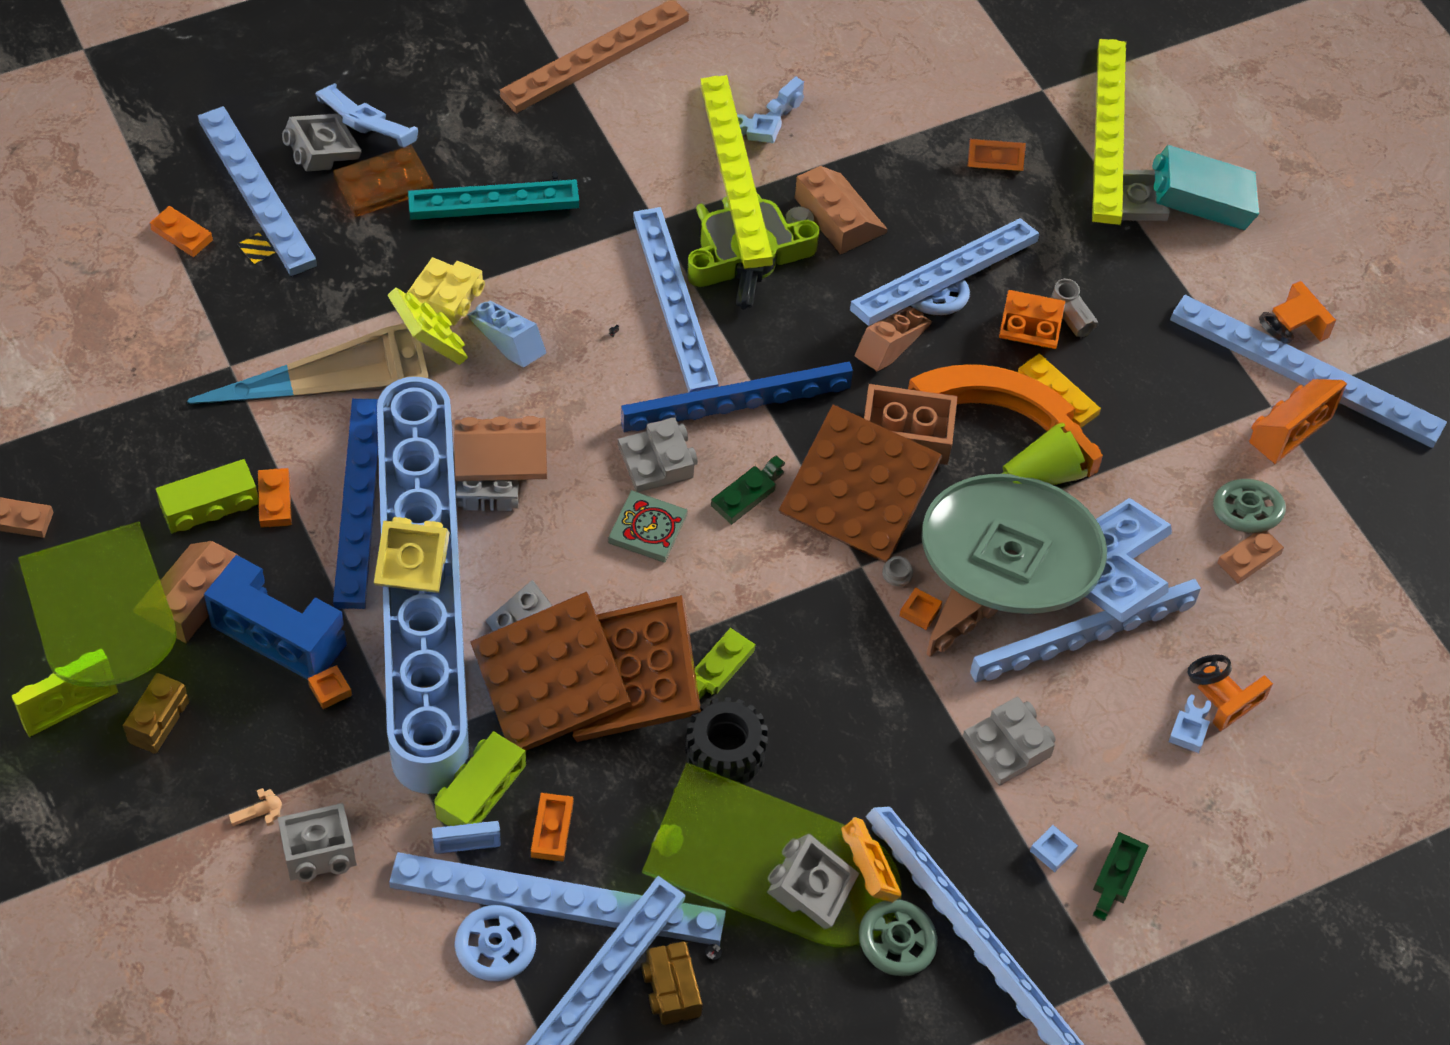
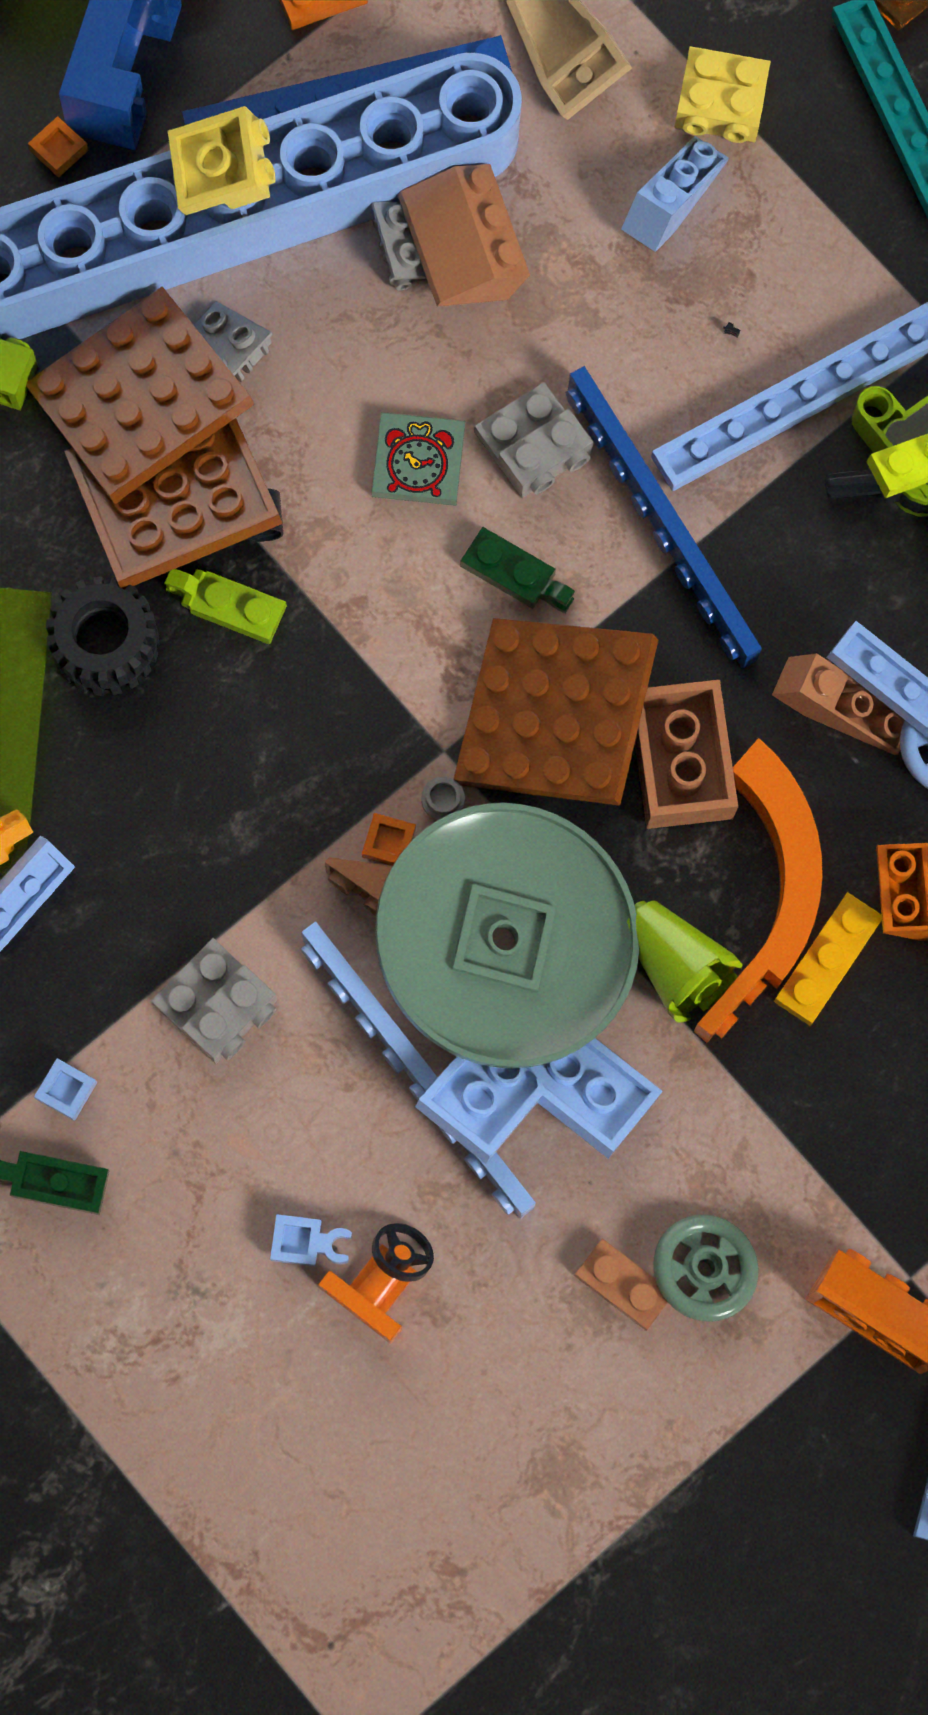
camera: 75 degrees right, 20 degrees up
(428, 325) = (624, 81): neon yellow plate -> none

